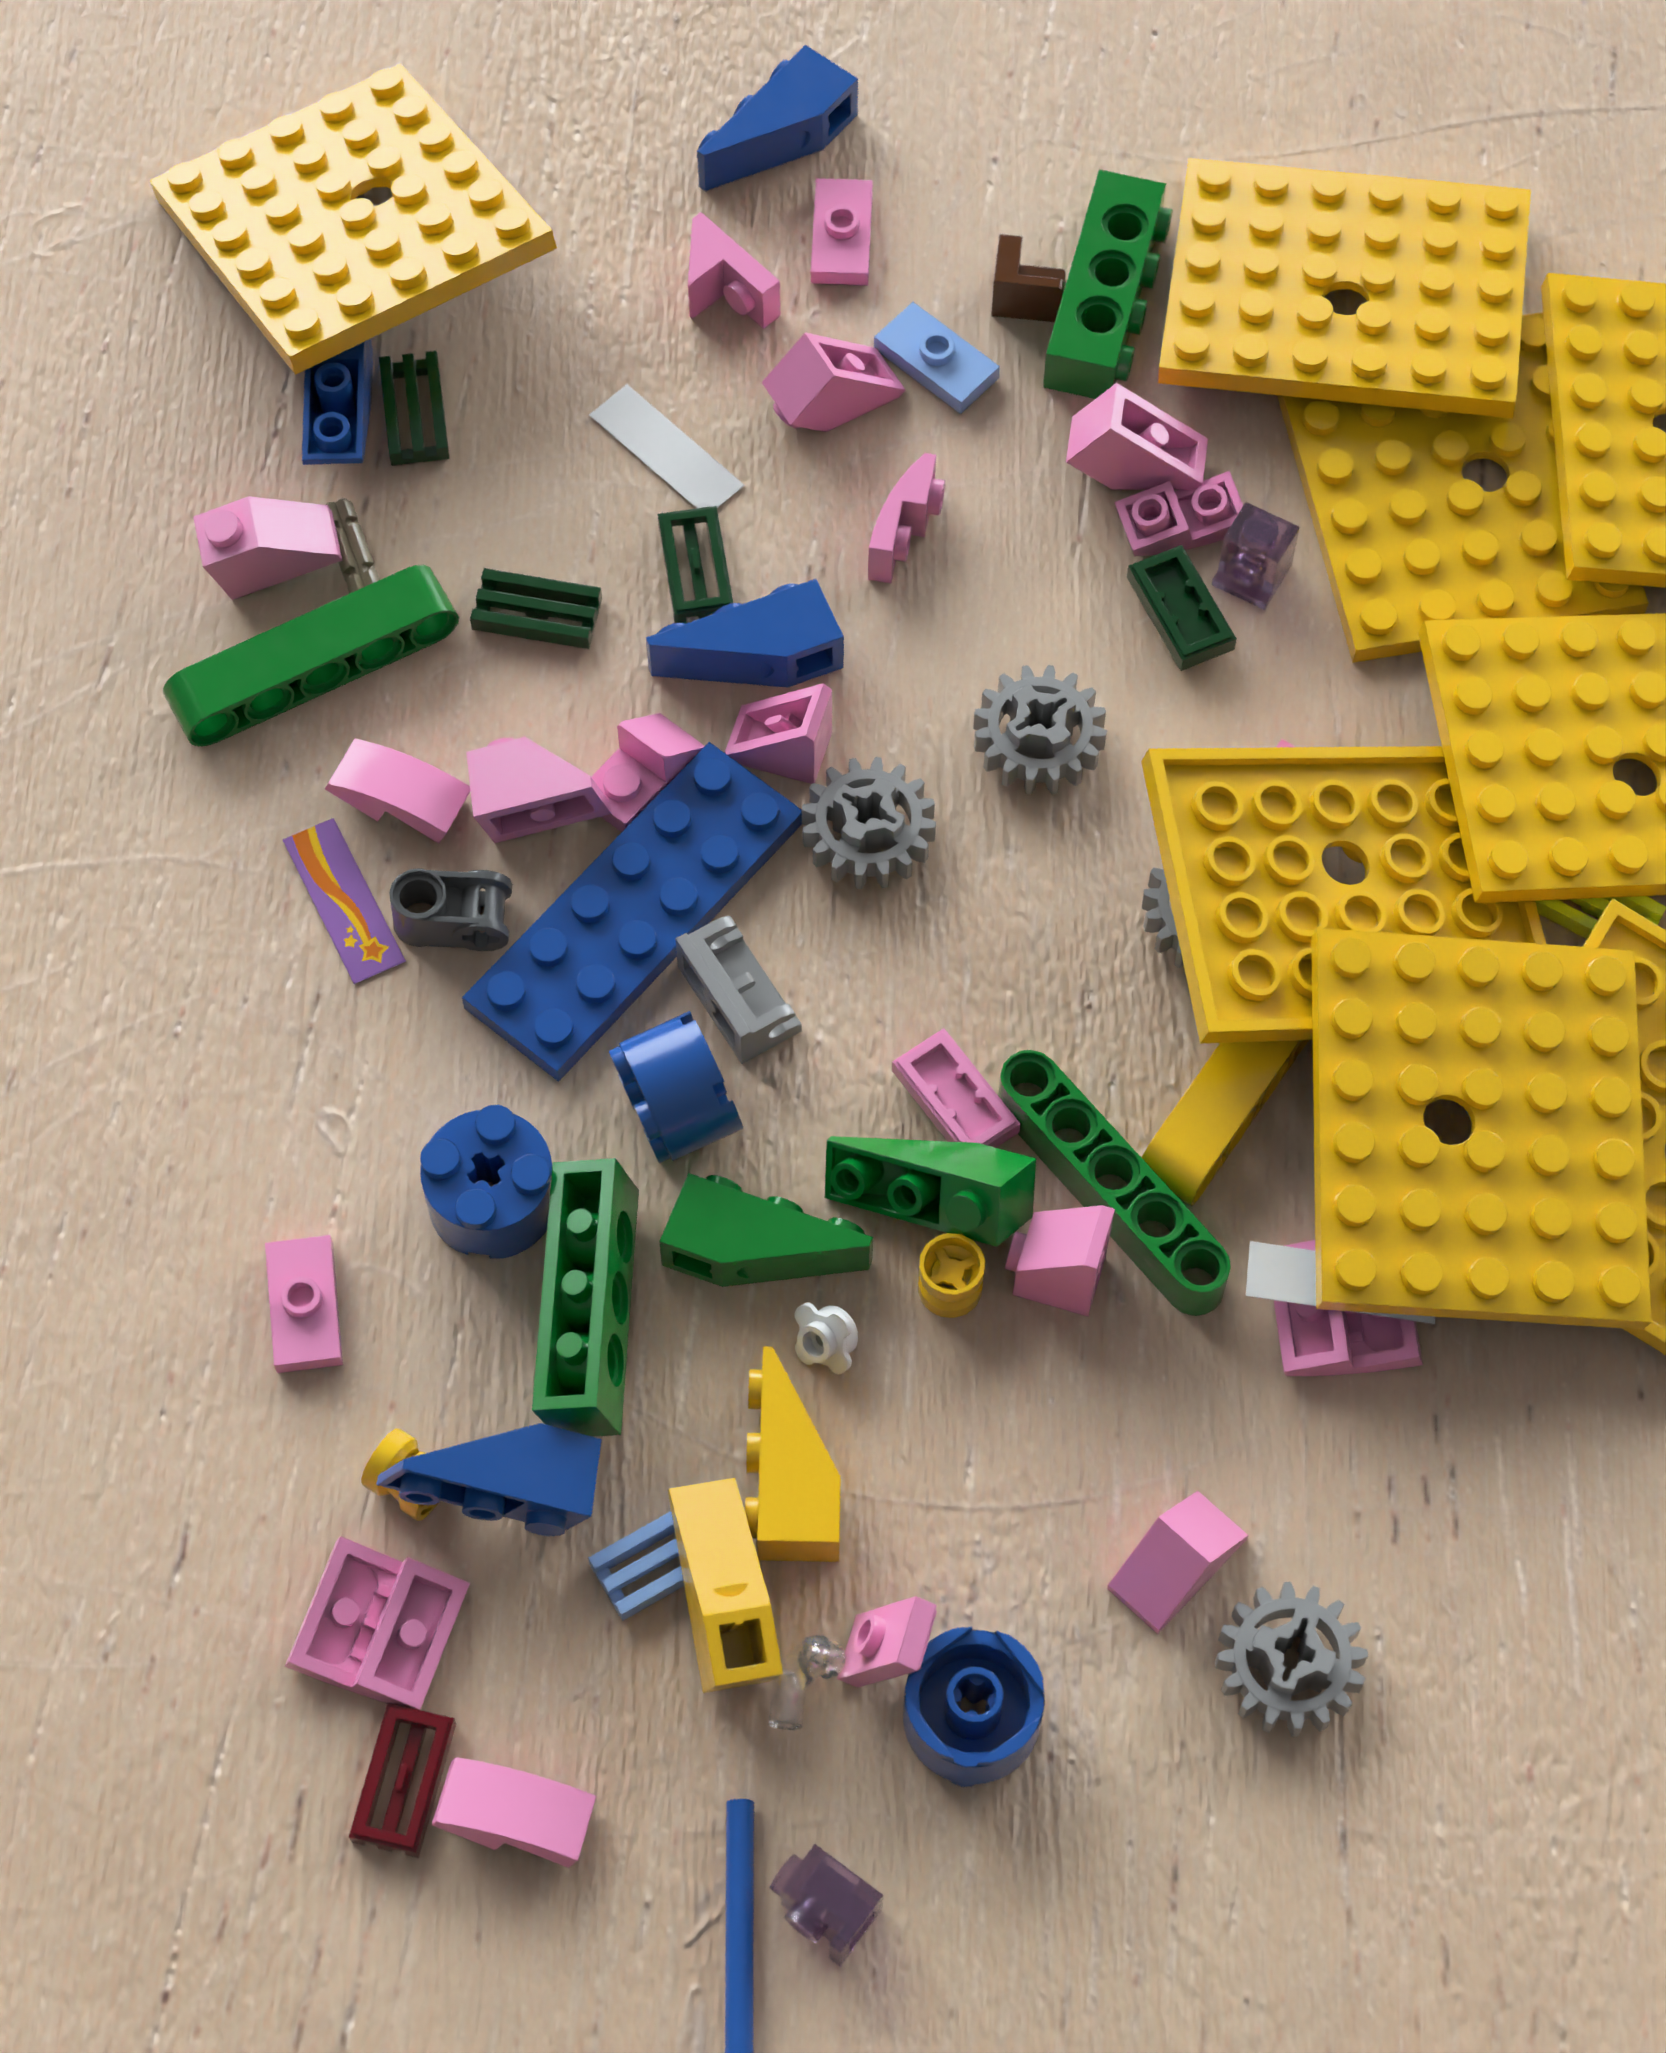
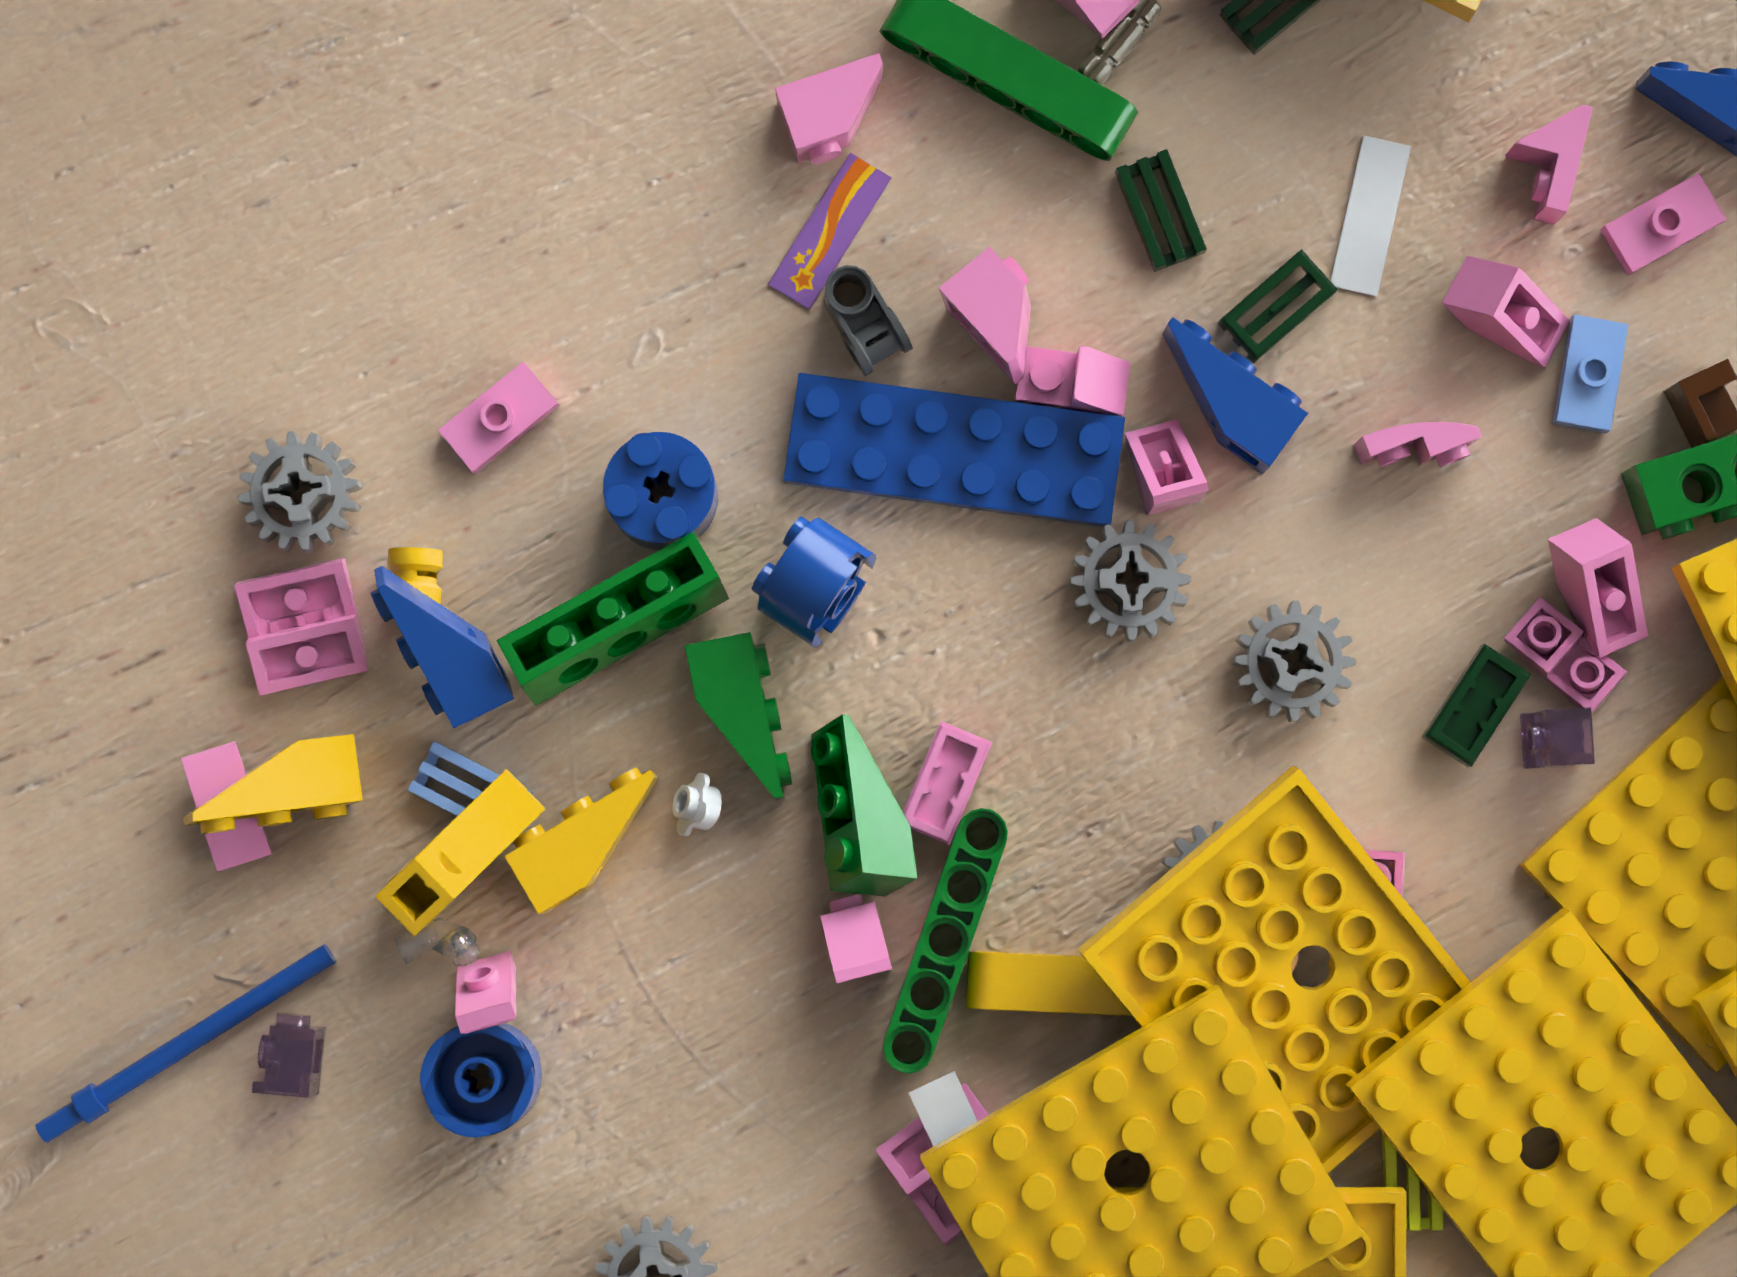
camera: 60 degrees right, 20 degrees up
(216, 1521) = (295, 469): none -> light grey gear
(227, 827) = (828, 108): none -> bright pink slope
(387, 1837) = (251, 700): dark red tile -> none
(390, 781) = (937, 212): bright pink slope -> none
(538, 1705) = (299, 778): none -> yellow slope
(735, 989) = (933, 568): light grey hinge -> none
(949, 1261) = (797, 866): yellow wheel -> none
(1176, 1560) = (687, 1155): bright pink slope -> none

